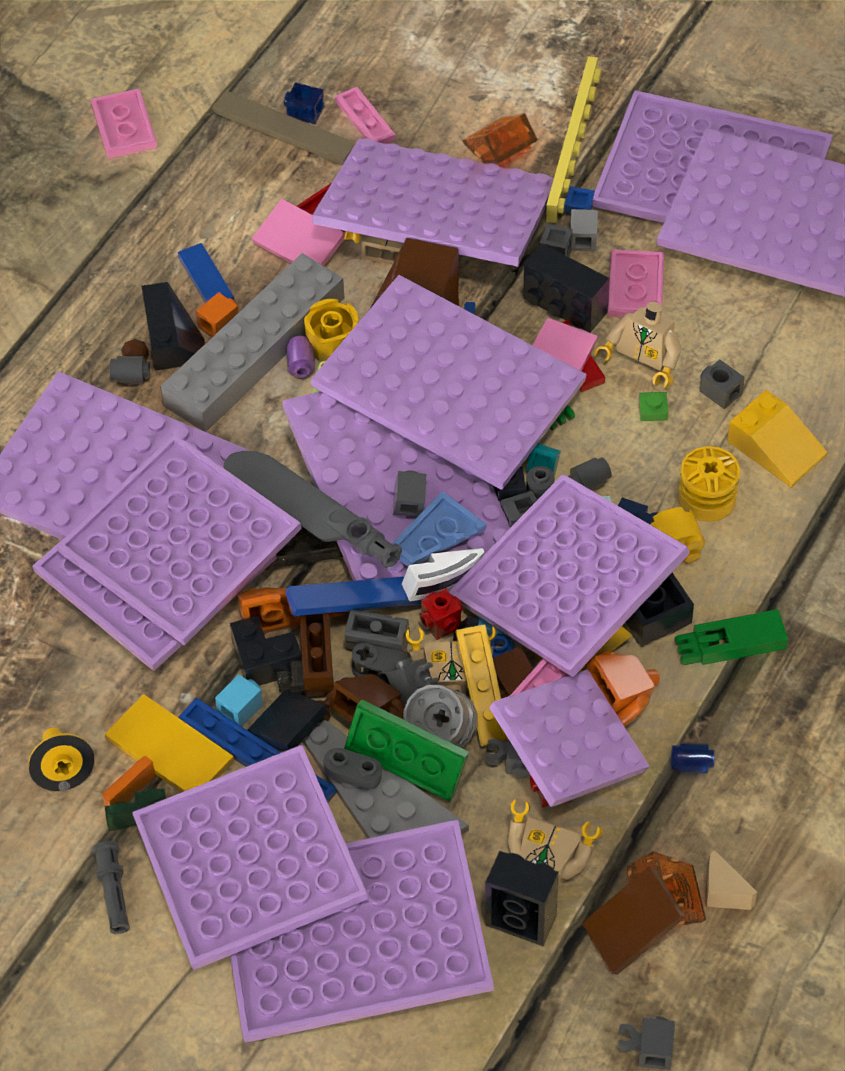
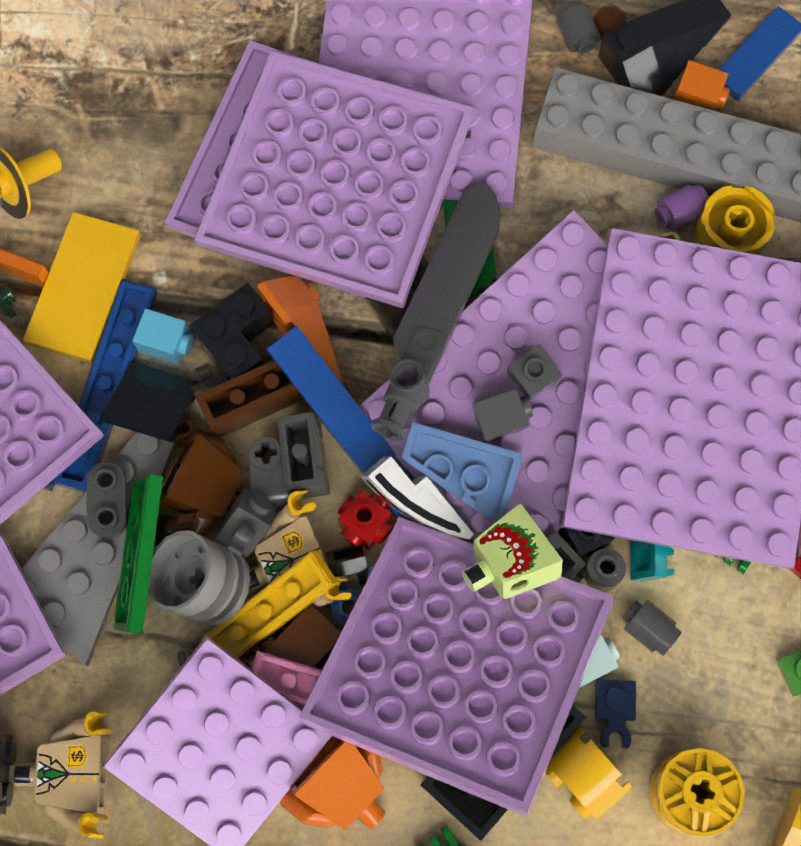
camera: 70 degrees right, 20 degrees up
(388, 459) = (534, 372): none -> dark grey brick
(511, 518) = (513, 556): none -> yellowish green torso

